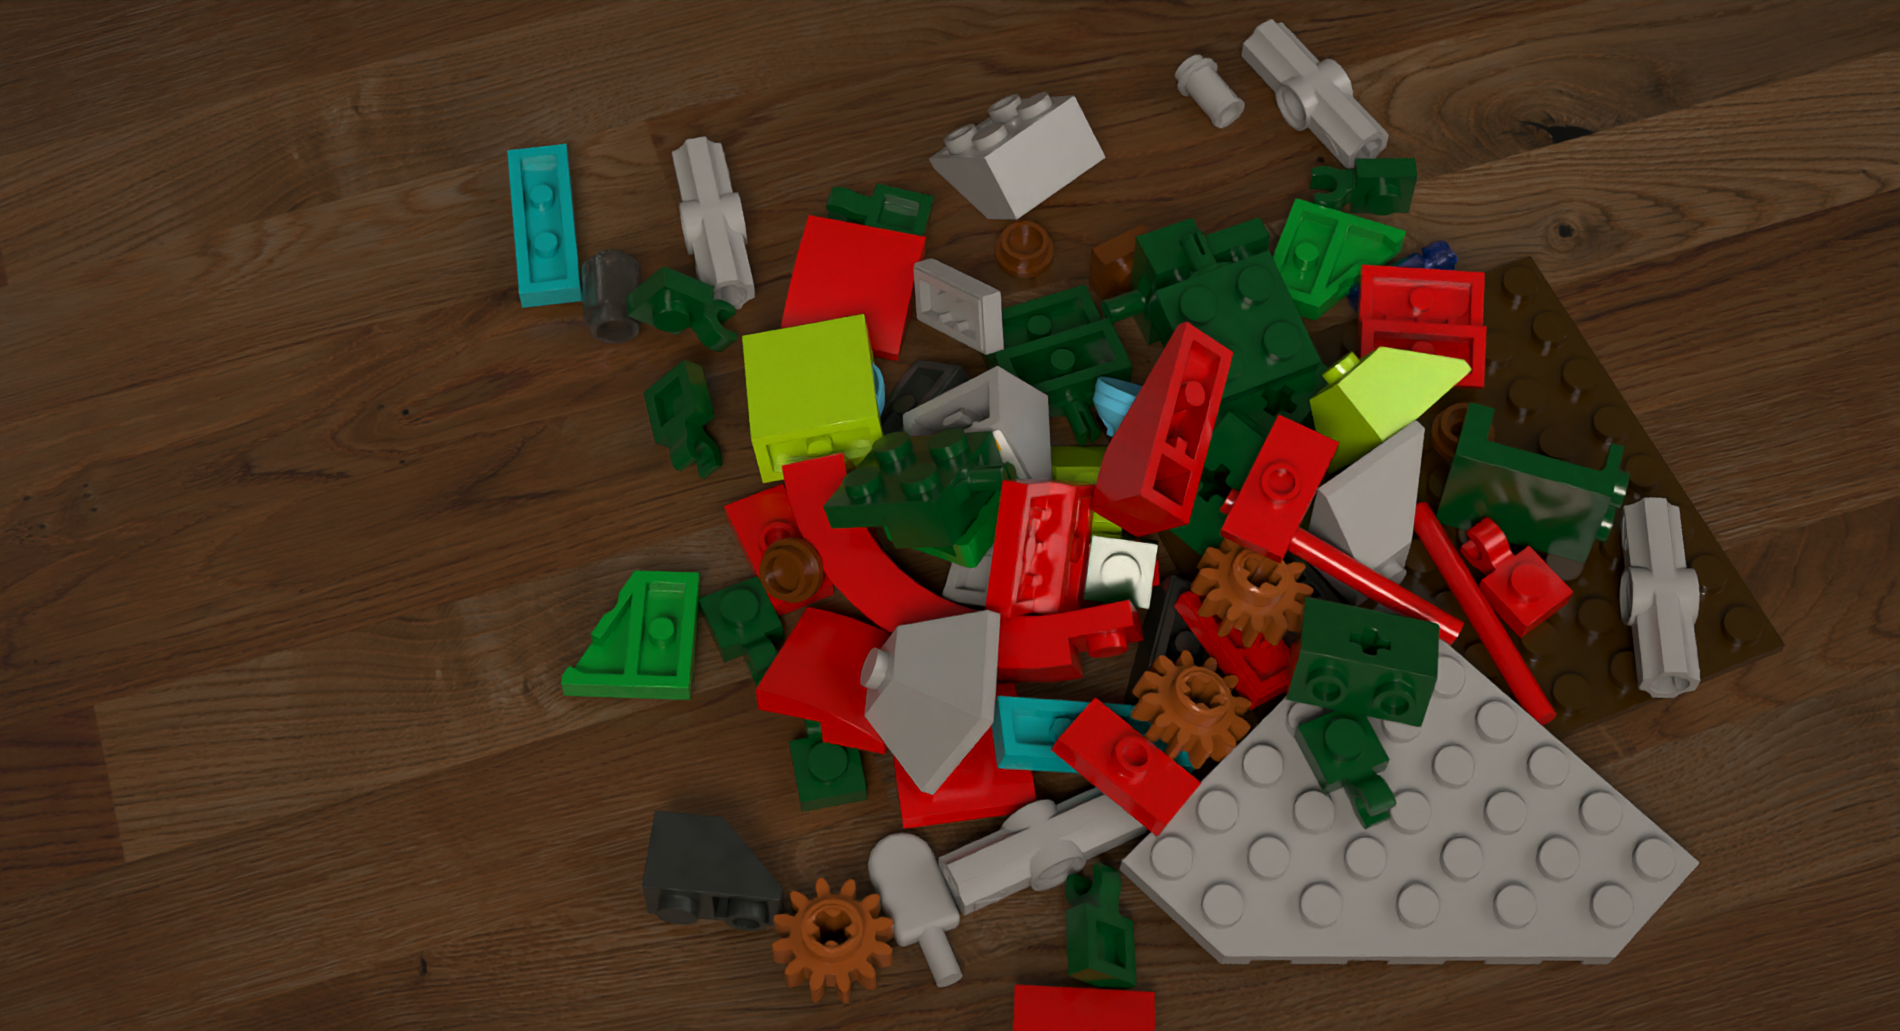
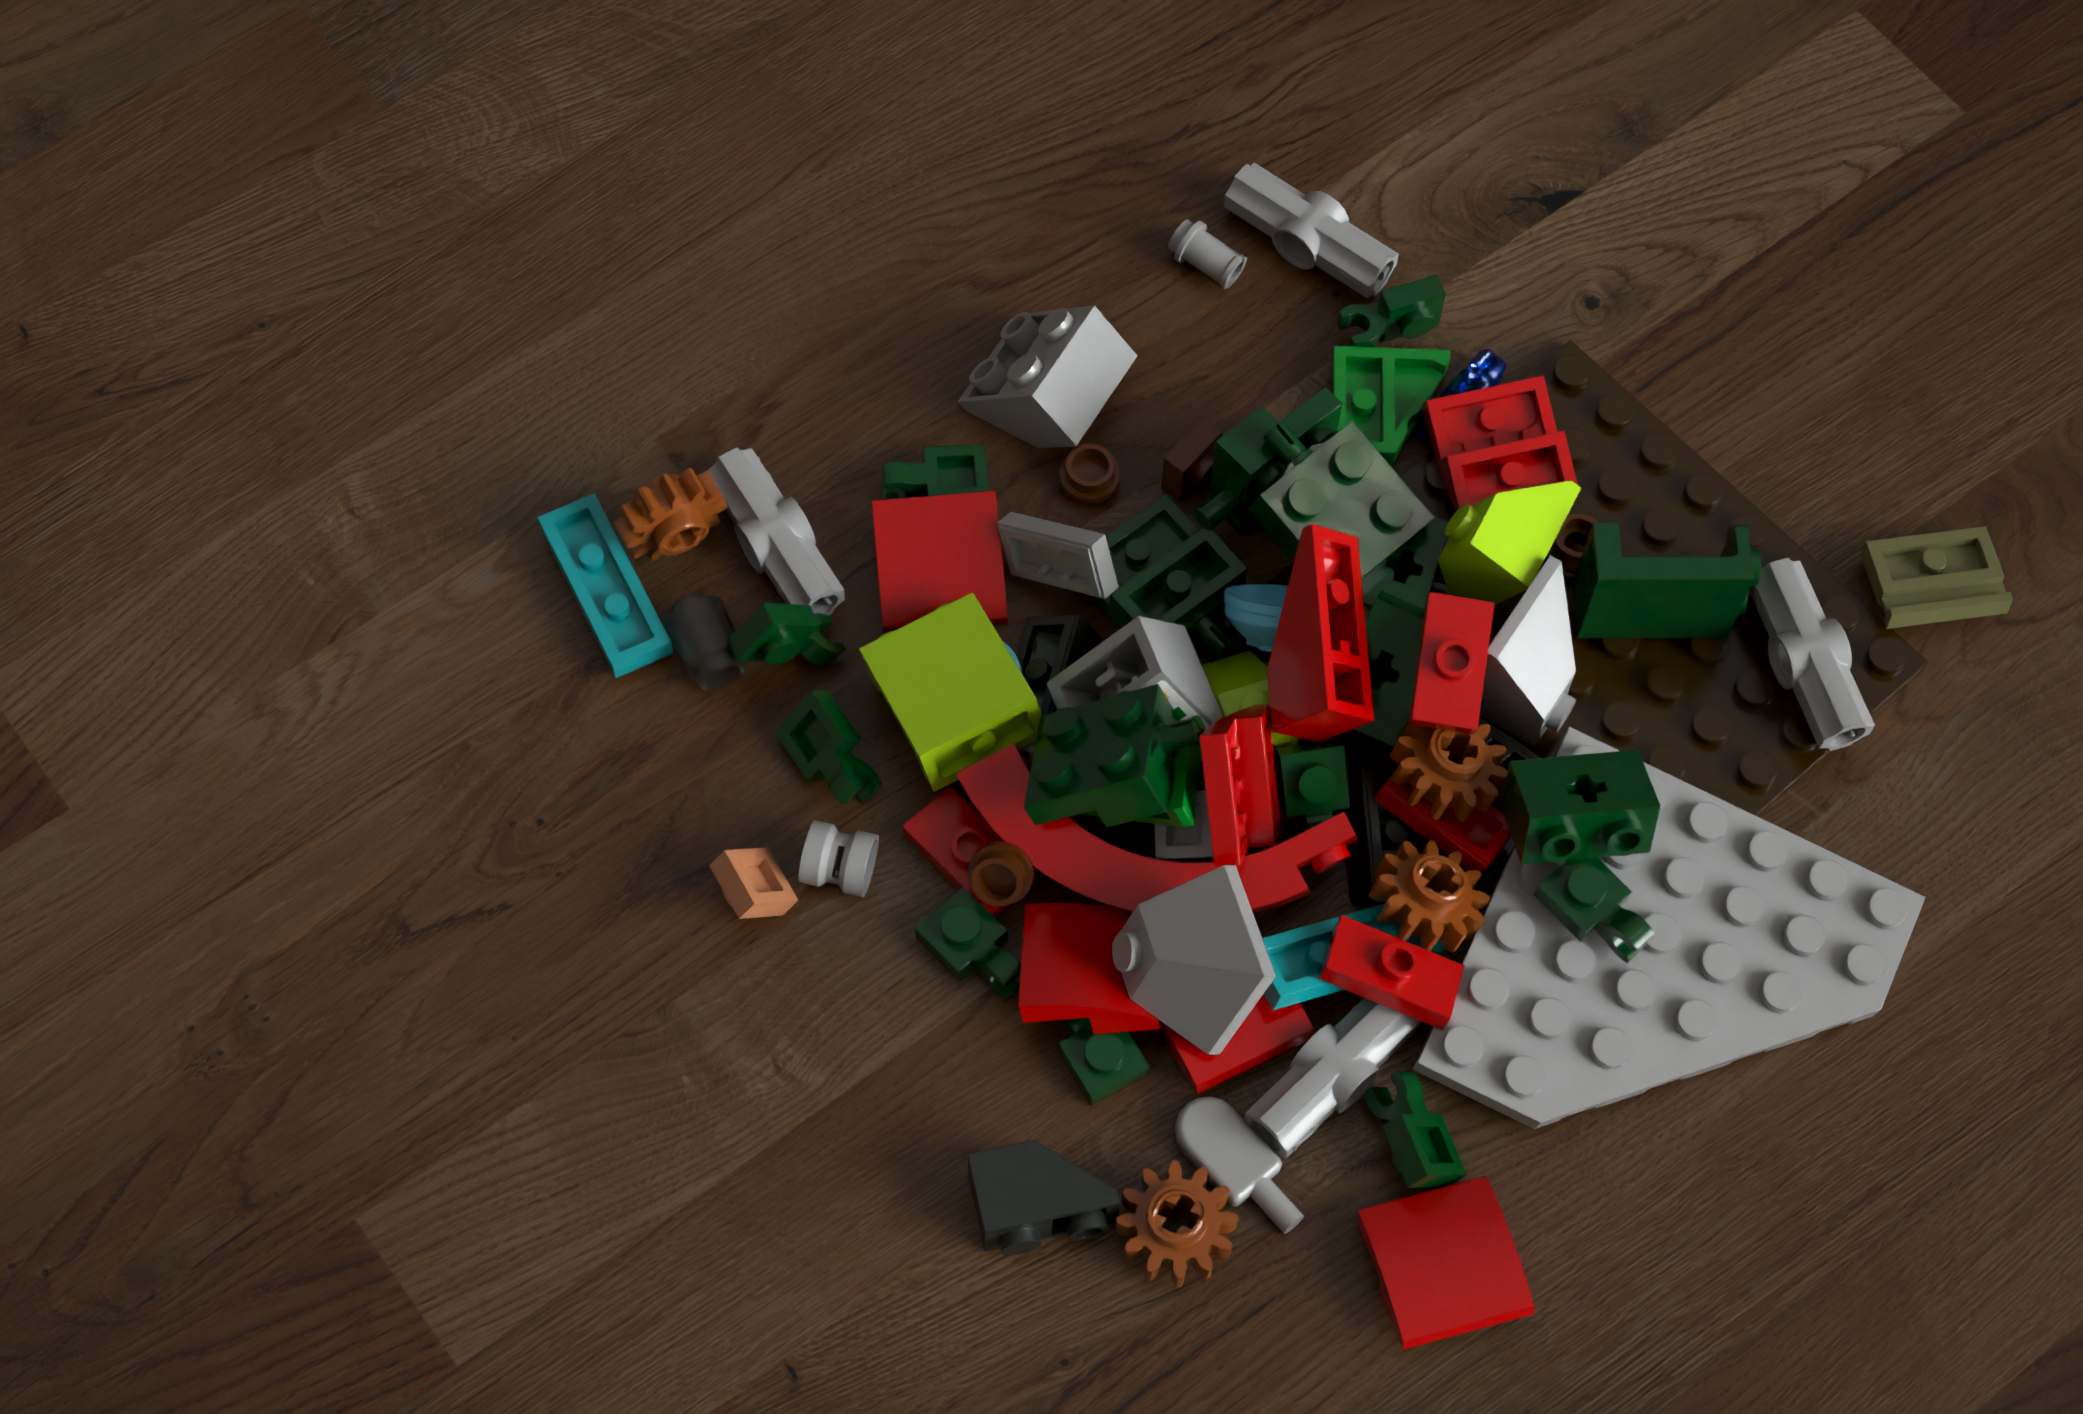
camera: 20 degrees left, 5 degrees up
(566, 515) = (753, 883): none -> nougat plate
(622, 177) = (670, 514): none -> dark orange gear
(644, 642) = (879, 987): green wing -> none
(652, 516) = (830, 851): none -> light grey wheel
(1365, 580) = (1548, 723): red bar -> none
(1481, 615) = (1658, 723): red bar -> none
(1516, 586) = (1678, 680): red plate -> none
(1819, 566) = (1936, 577): none -> olive plate

